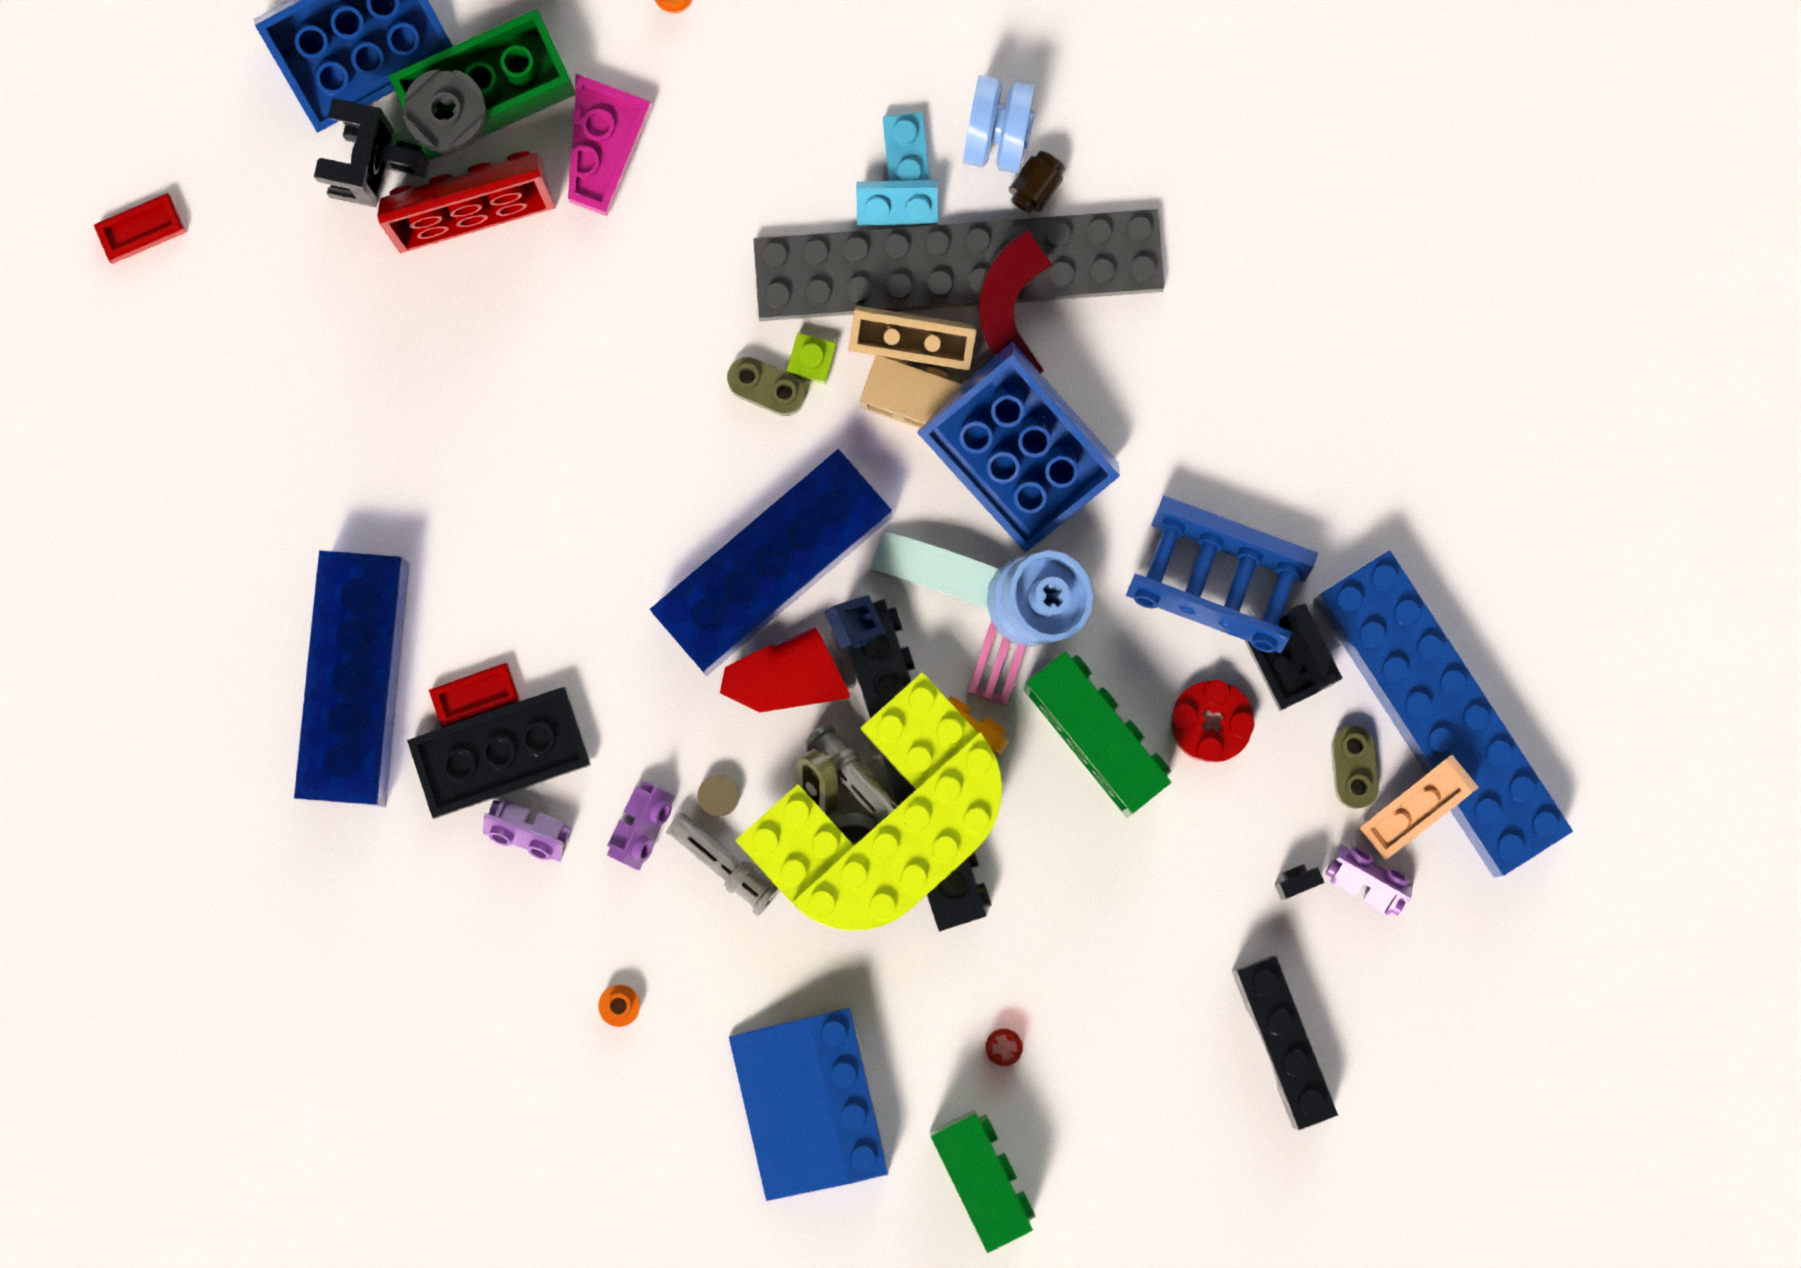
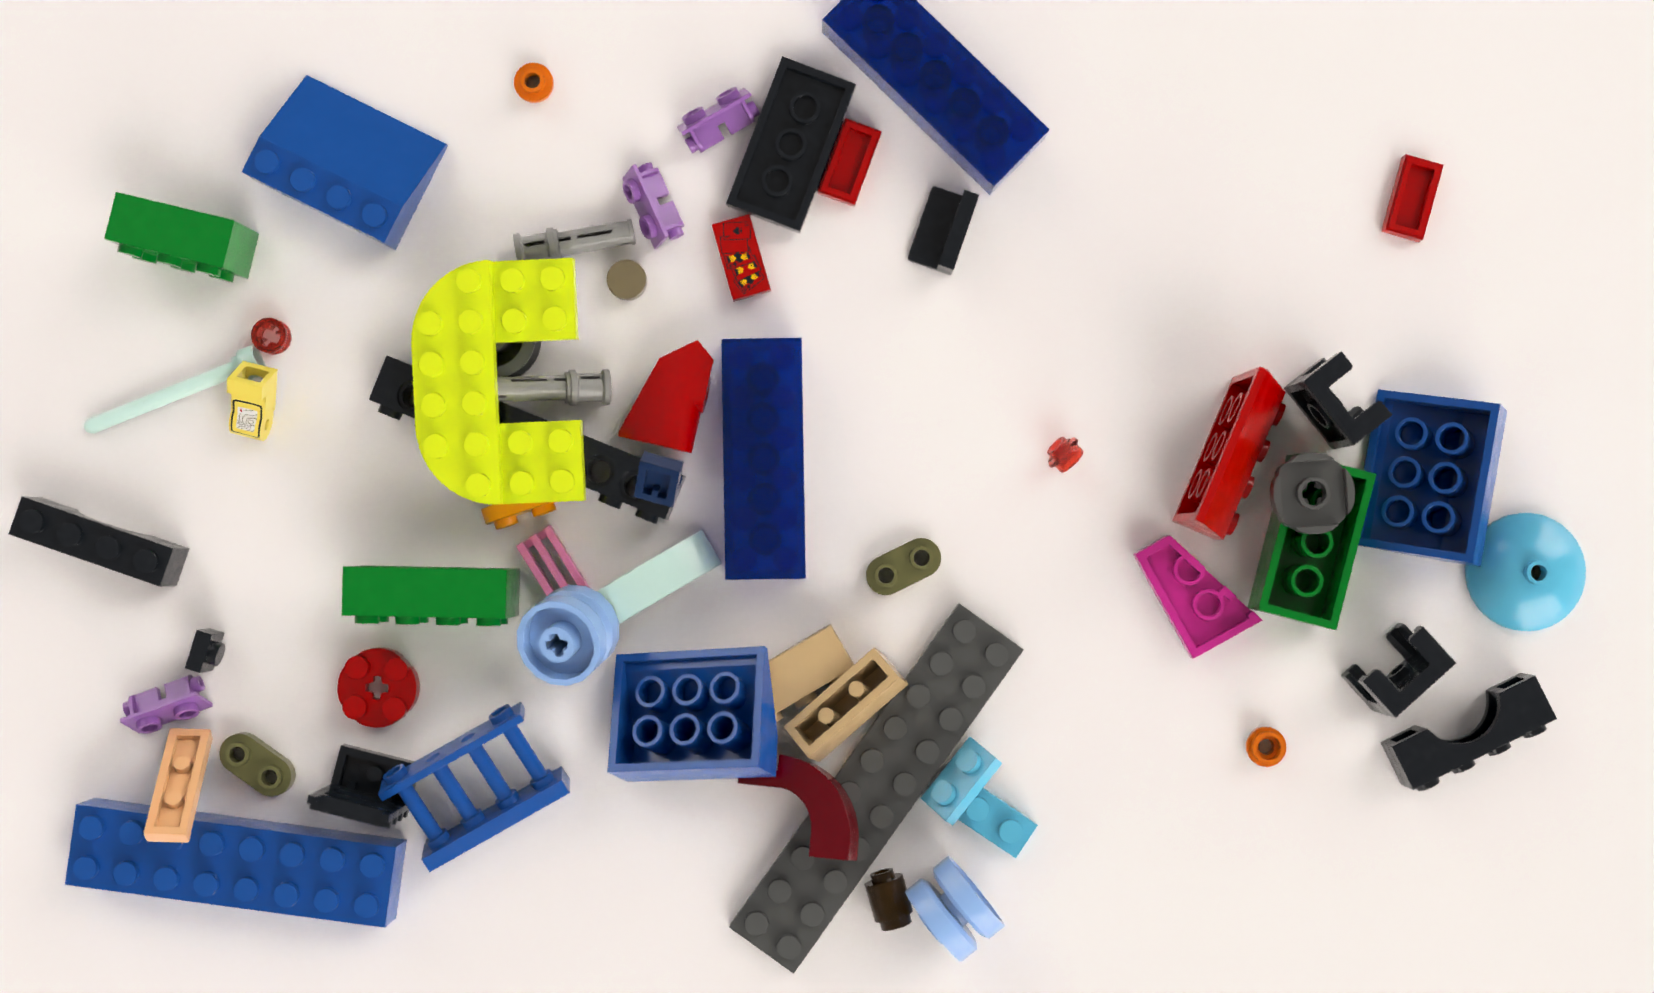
camera: 130 degrees right, 5 degrees up
(404, 158) = (1303, 438): black plate -> none
(468, 575) = (942, 229): none -> black panel
(571, 332) = (1064, 453): none -> clear red plate
(624, 718) = (741, 257): none -> red tile
(811, 358) = (896, 617): lime plate -> none
(819, 779) = (570, 358): olive plate -> none
(1045, 1048) = (173, 392): none -> light aqua piece
(1067, 1013) = (252, 401): none -> light yellow leg

